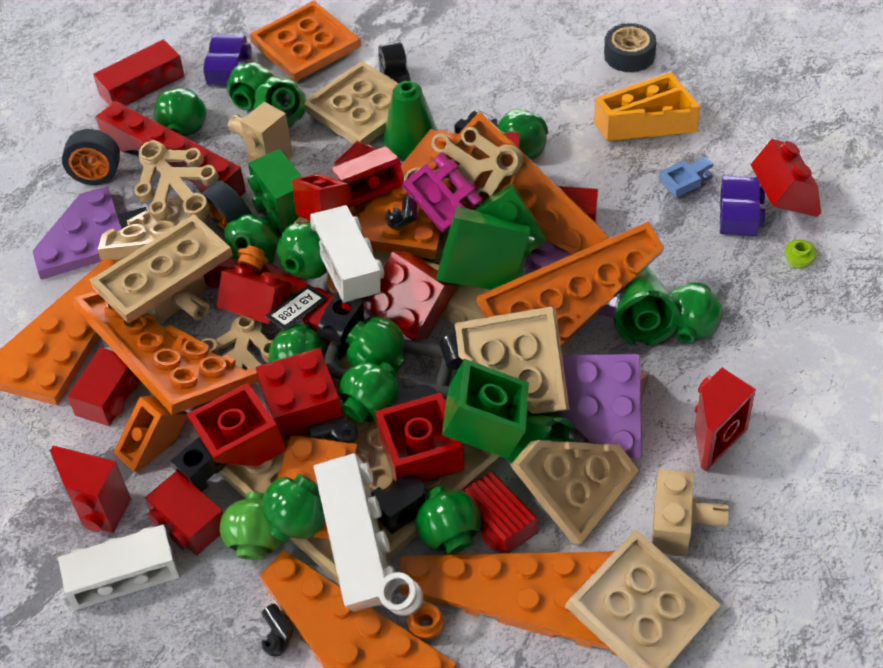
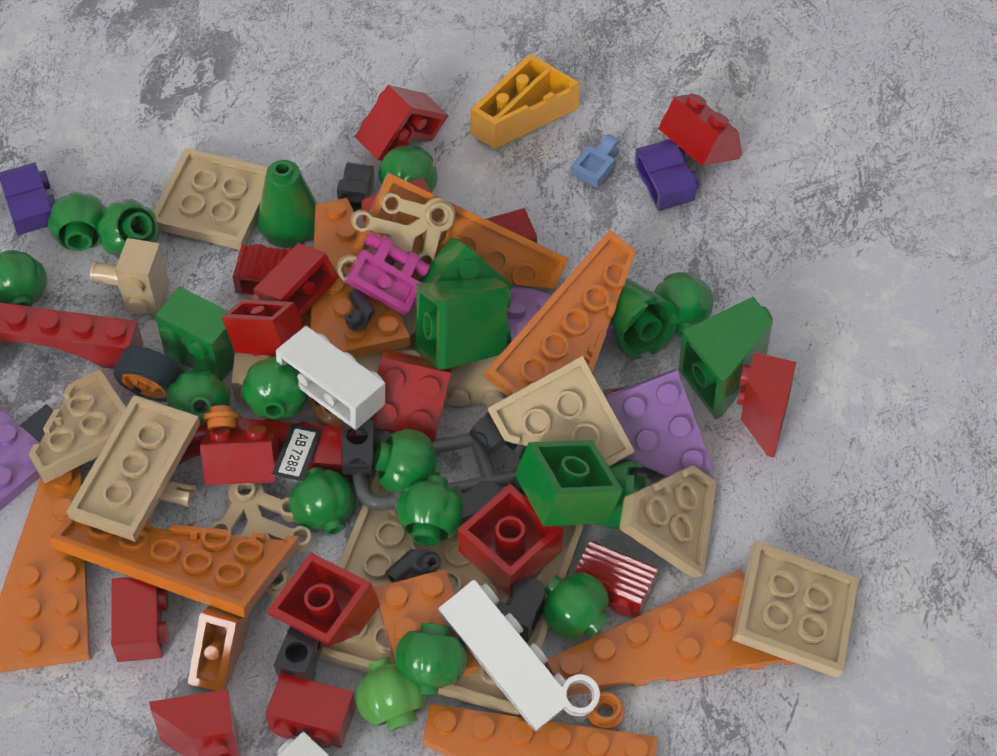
camera: 30 degrees left, 5 degrees up
(155, 156) = (73, 361): tan plant -> none
(298, 392) = (360, 537): red brick -> none
(305, 40) = (102, 145): orange plate -> none
(393, 61) = (221, 137): black leg -> none
(538, 87) = (399, 118): none -> red brick
(630, 47) = (461, 35): black wheel -> none
(678, 511) = (776, 508): tan brick -> none
(700, 351) = (718, 350): none -> green slope
(800, 253) = (746, 210): lime plate -> none

